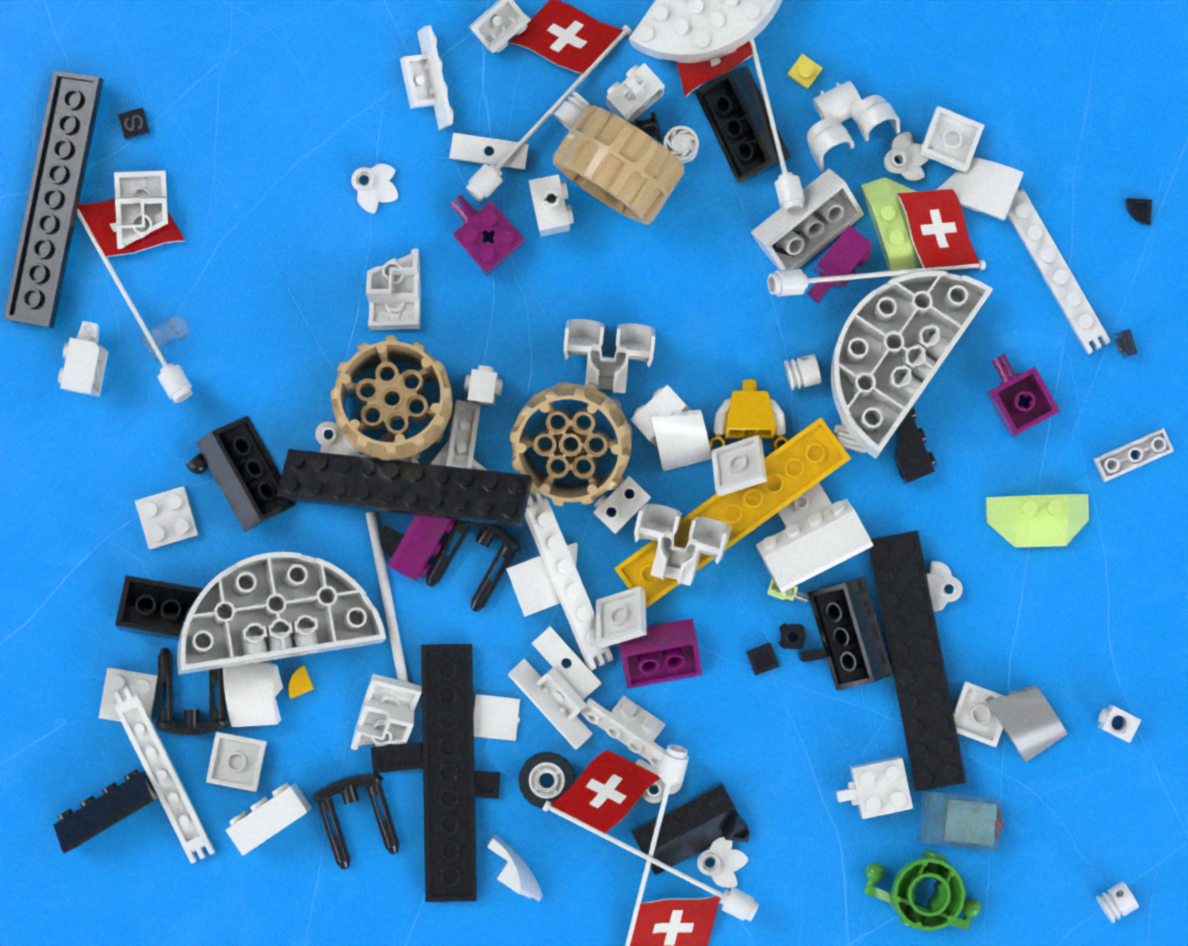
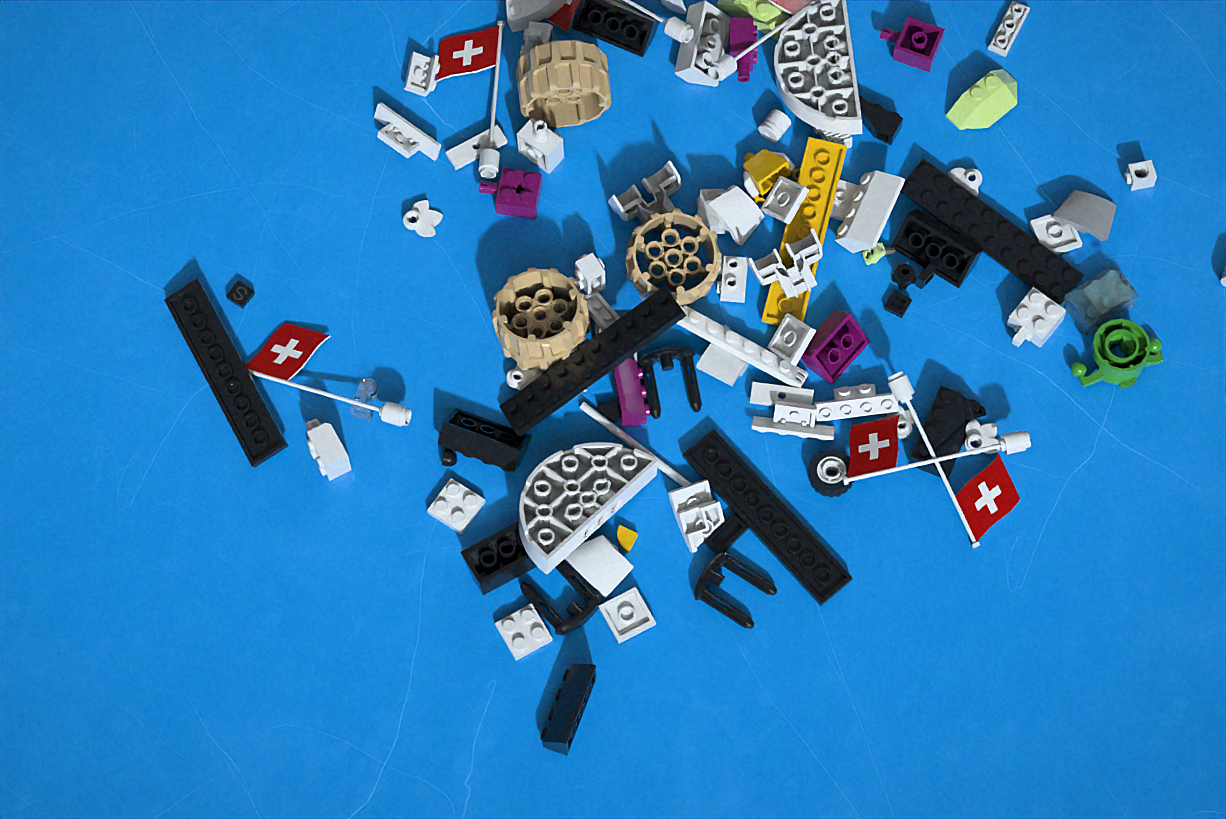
camera: 35 degrees left, 20 degrees down
(139, 204) = (283, 335): white slope -> none
(162, 774) = (580, 653): white hinge -> none
(268, 817) = (677, 627): white brick -> none
(395, 294) = (487, 268): white slope -> none
(487, 784) = (797, 506): black tile -> none
(496, 717) = (767, 463): white piece -> none
(515, 871) = (857, 536): white slope -> none
(571, 110) = (508, 88): white piece -> none

